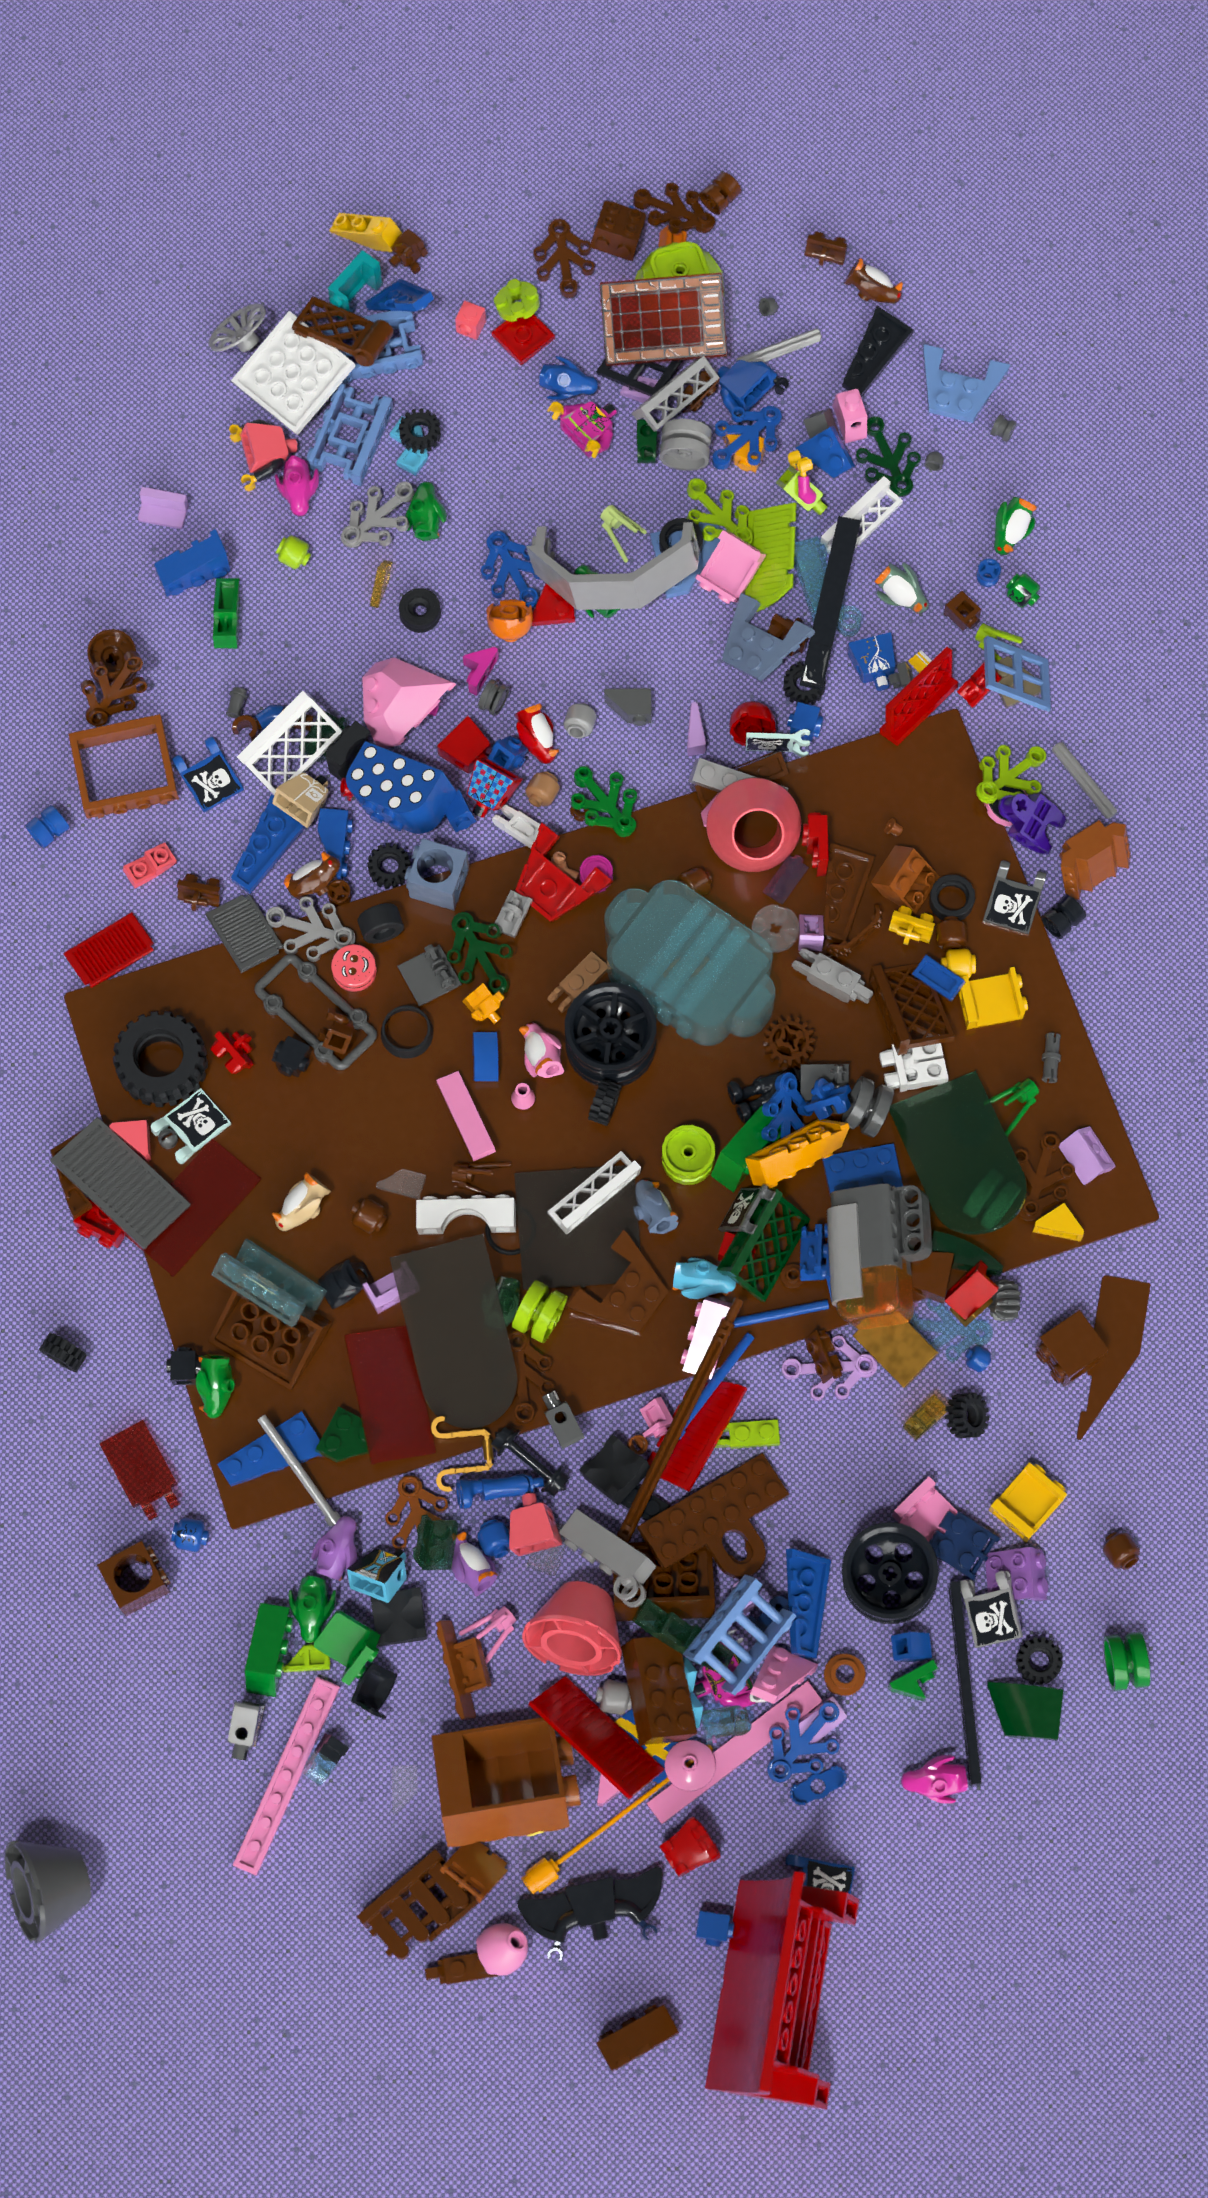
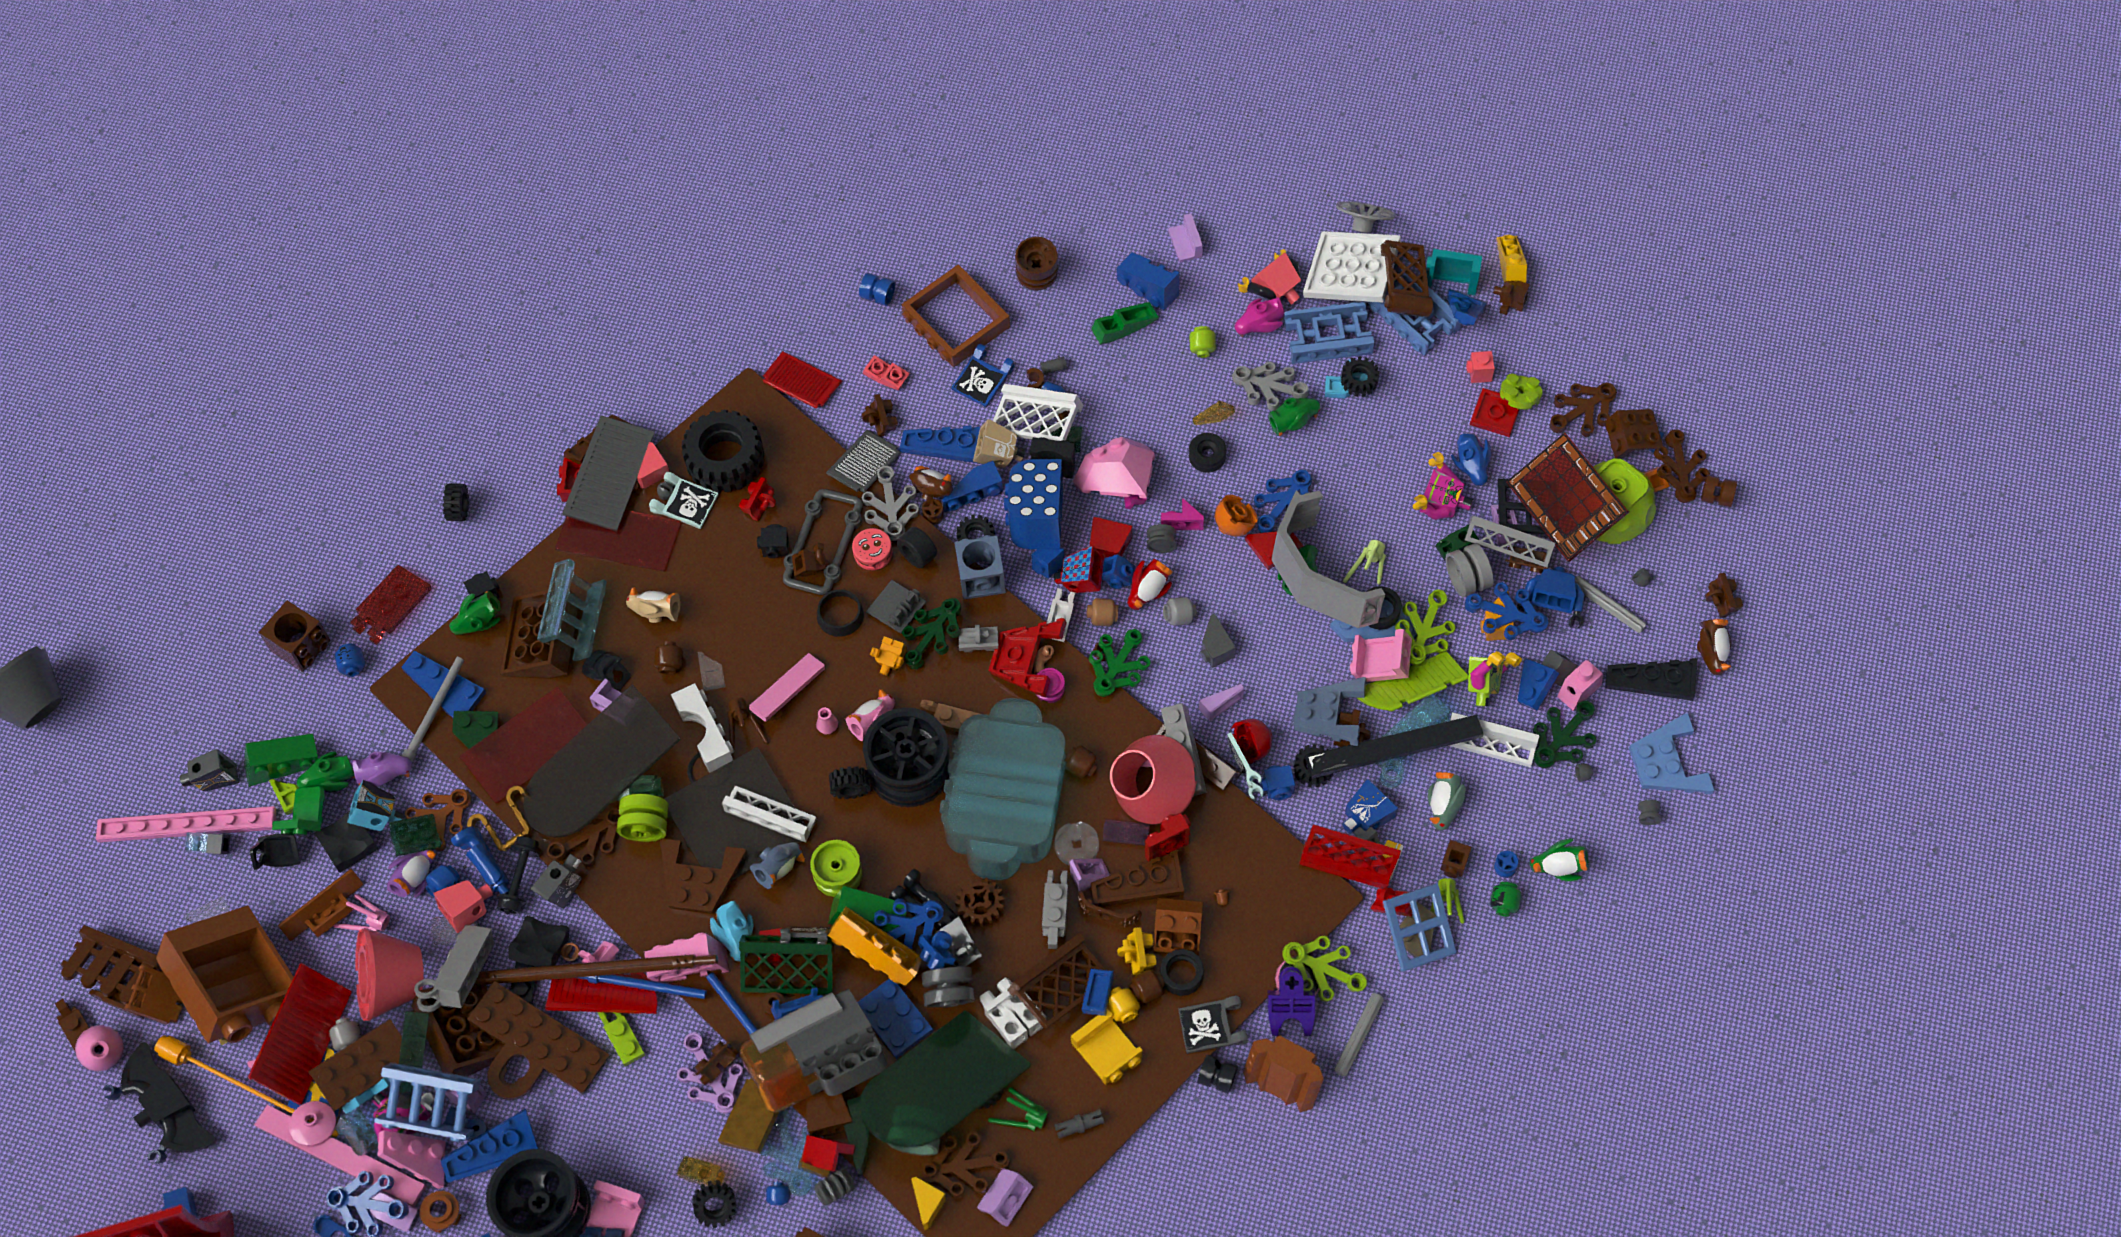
camera: 65 degrees right, 10 degrees down
(113, 691) = (990, 279): reddish brown plant -> none
(485, 1056) = (846, 677): blue slope -> none
(636, 2037) = (59, 1187): reddish brown wedge -> none
(690, 1848) = (239, 1155): red piece -> none

